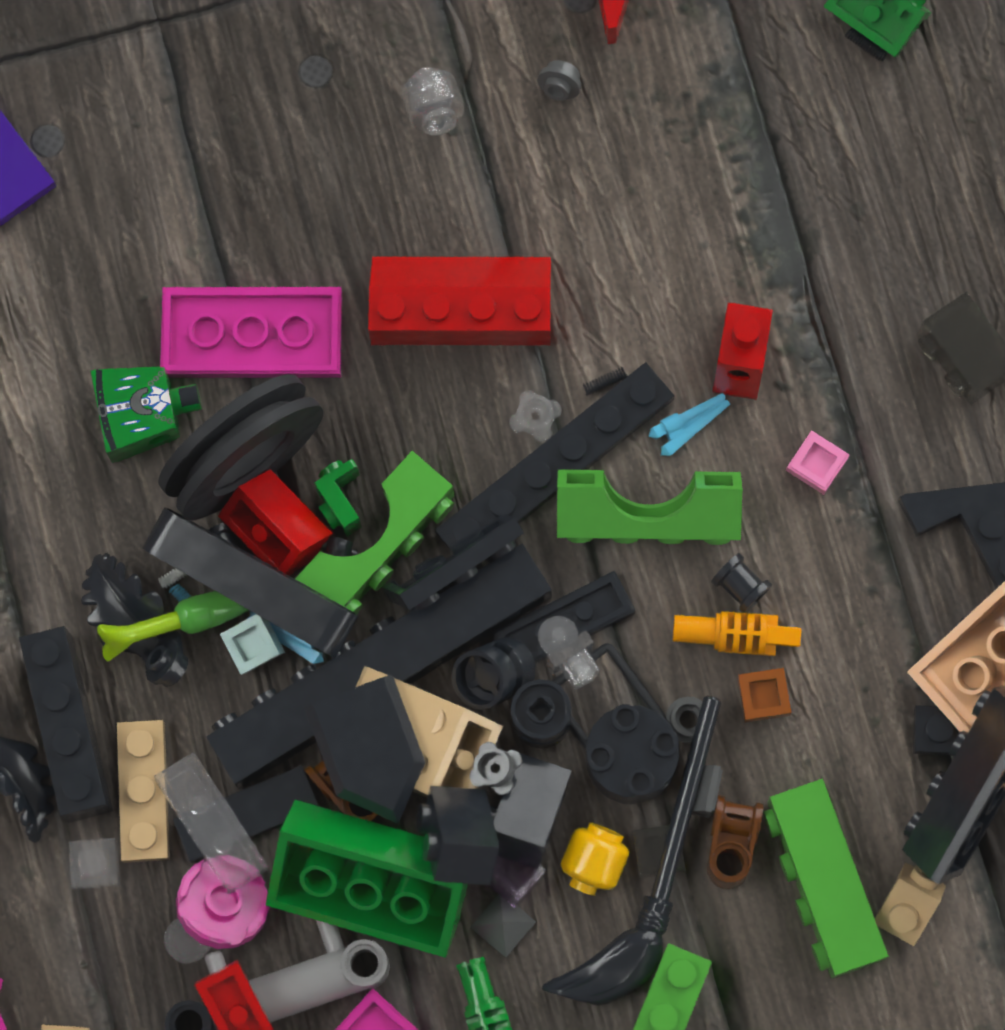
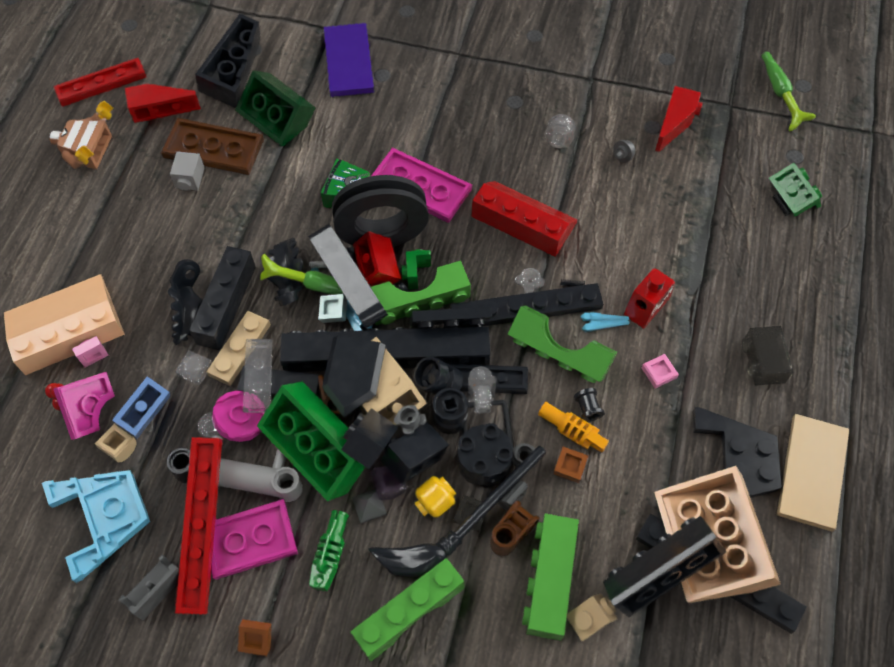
camera: 25 degrees right, 15 degrees down
(69, 978) = (141, 407): none -> medium blue brick

